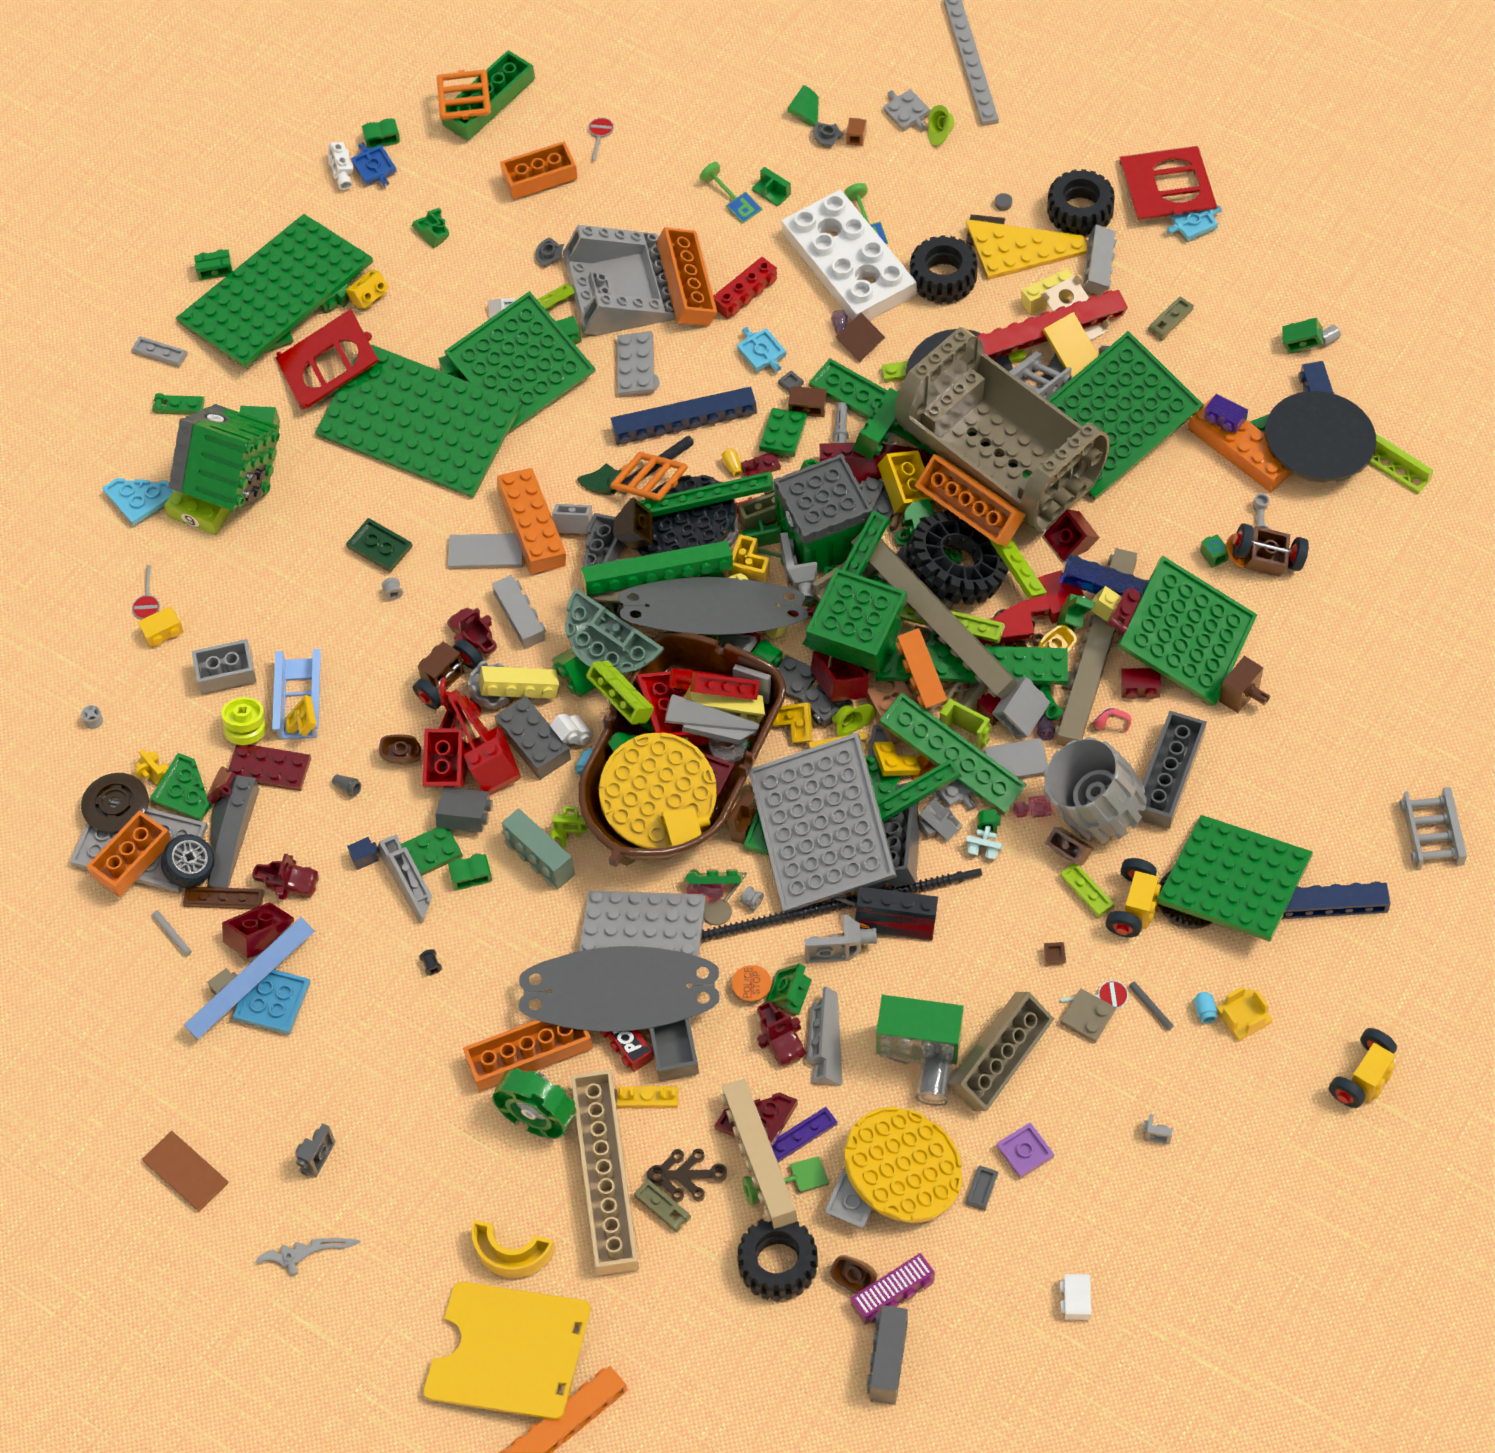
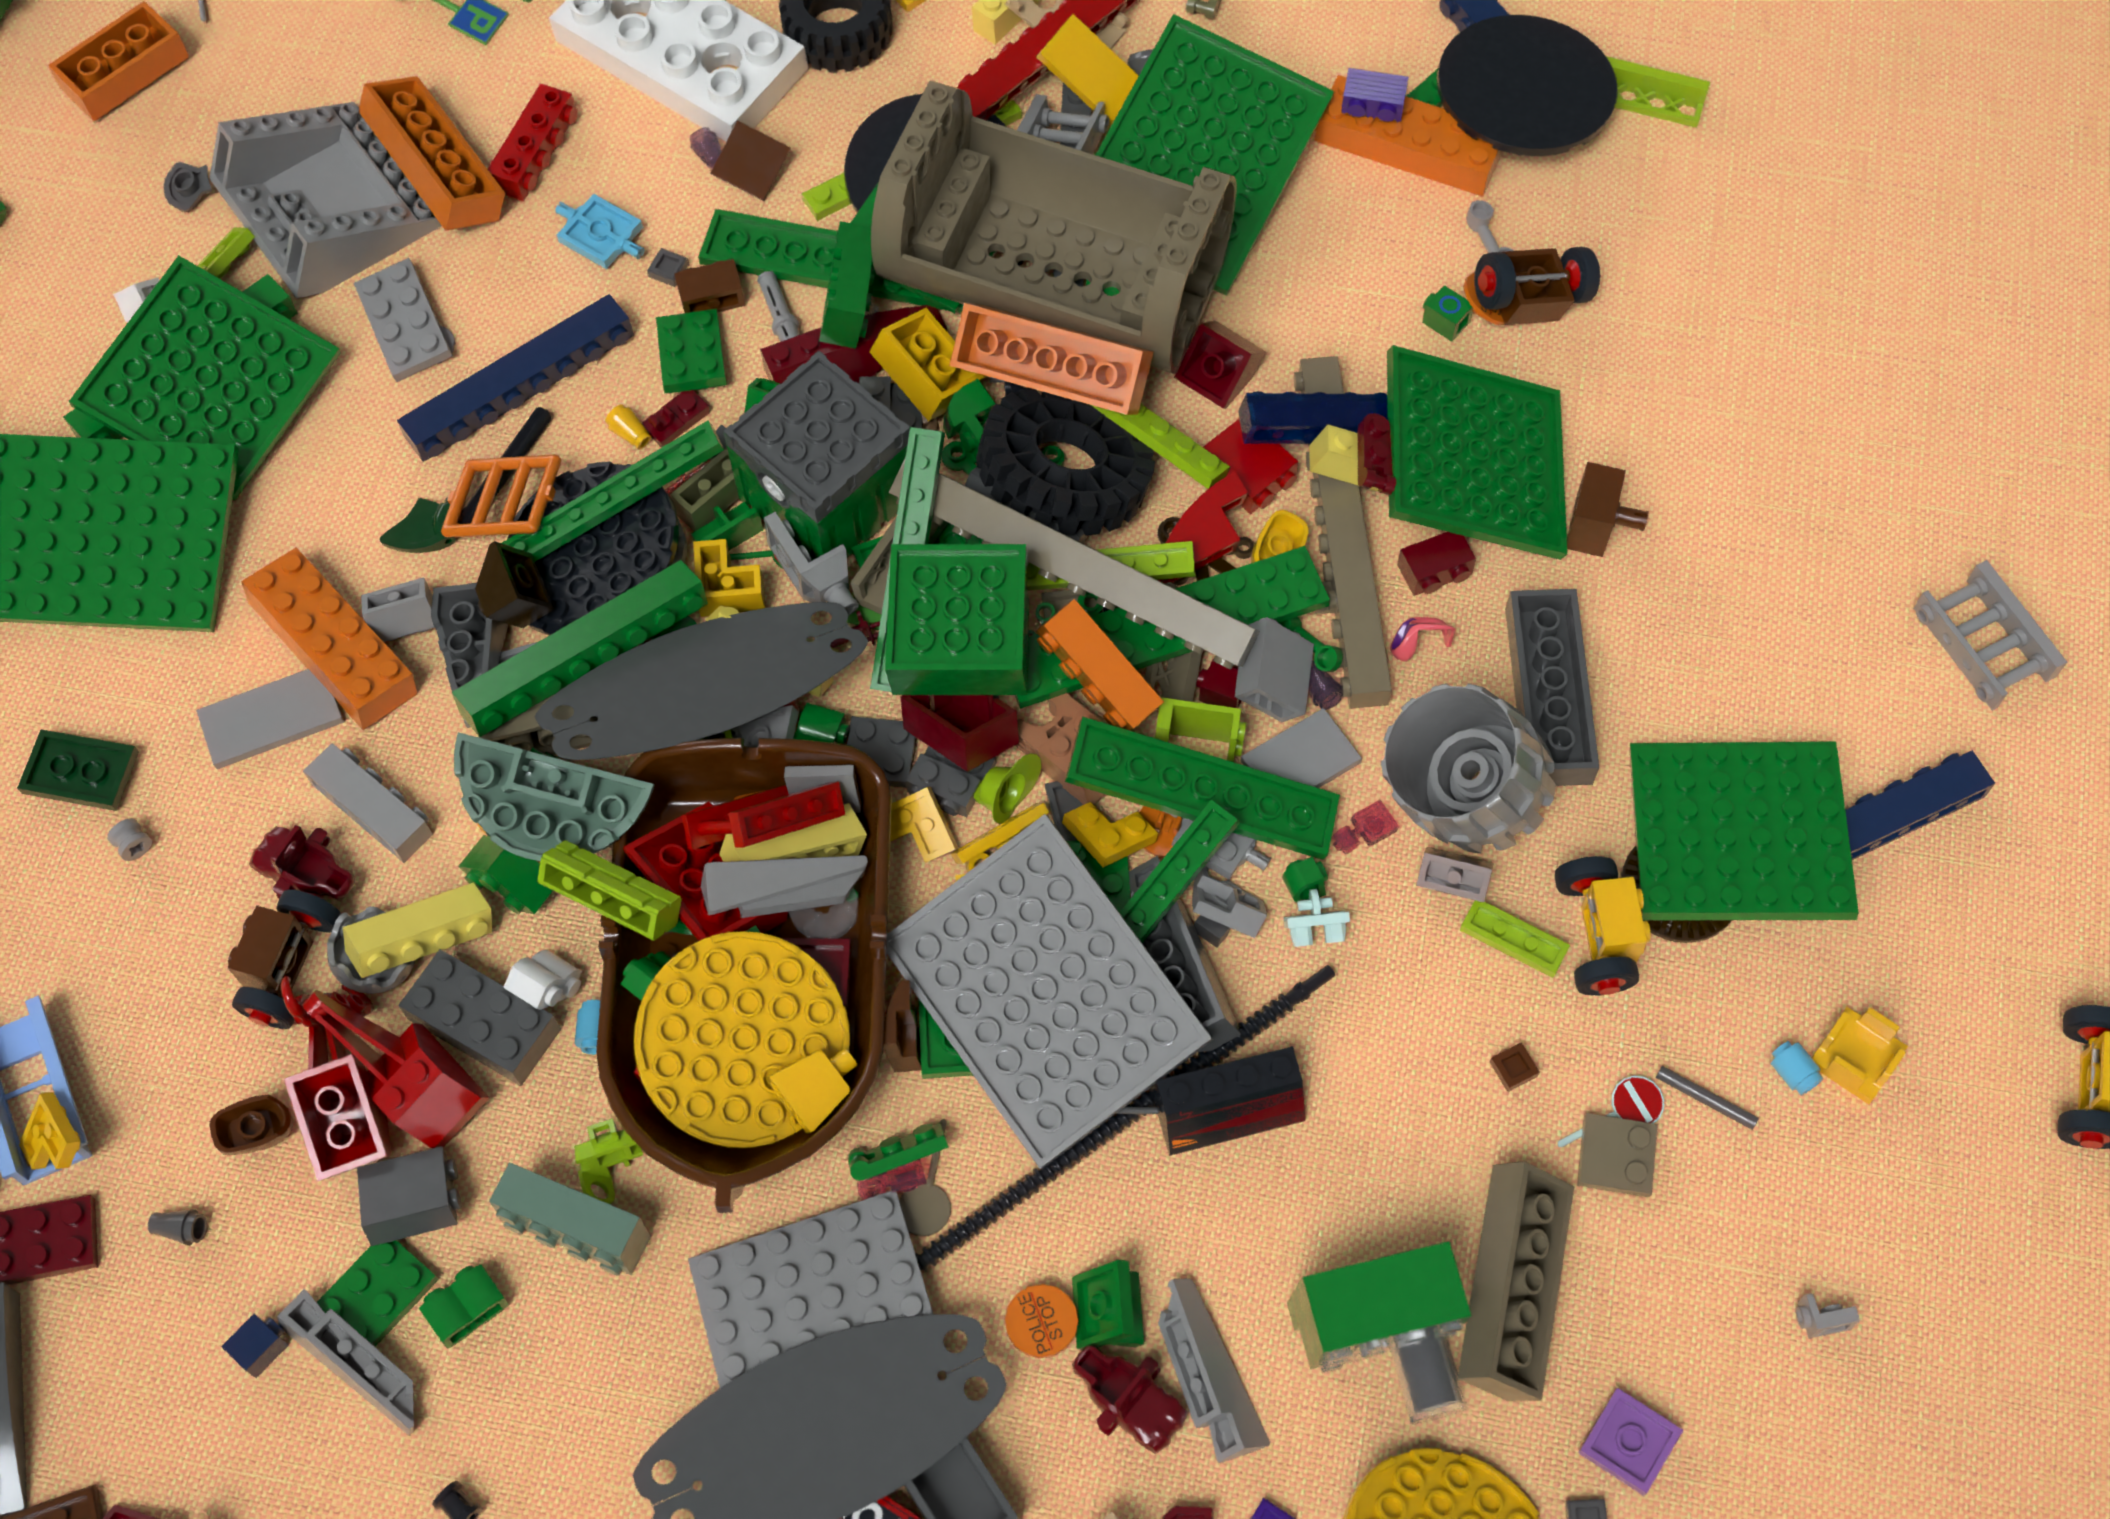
camera: 25 degrees left, 5 degrees up
(287, 877) = (131, 1448): dark red piece -> none
(751, 898) = (975, 1164): light grey wheel -> none
(839, 948) = (1179, 1179): light grey plate -> none
(1074, 610) = (1286, 482): green brick -> none

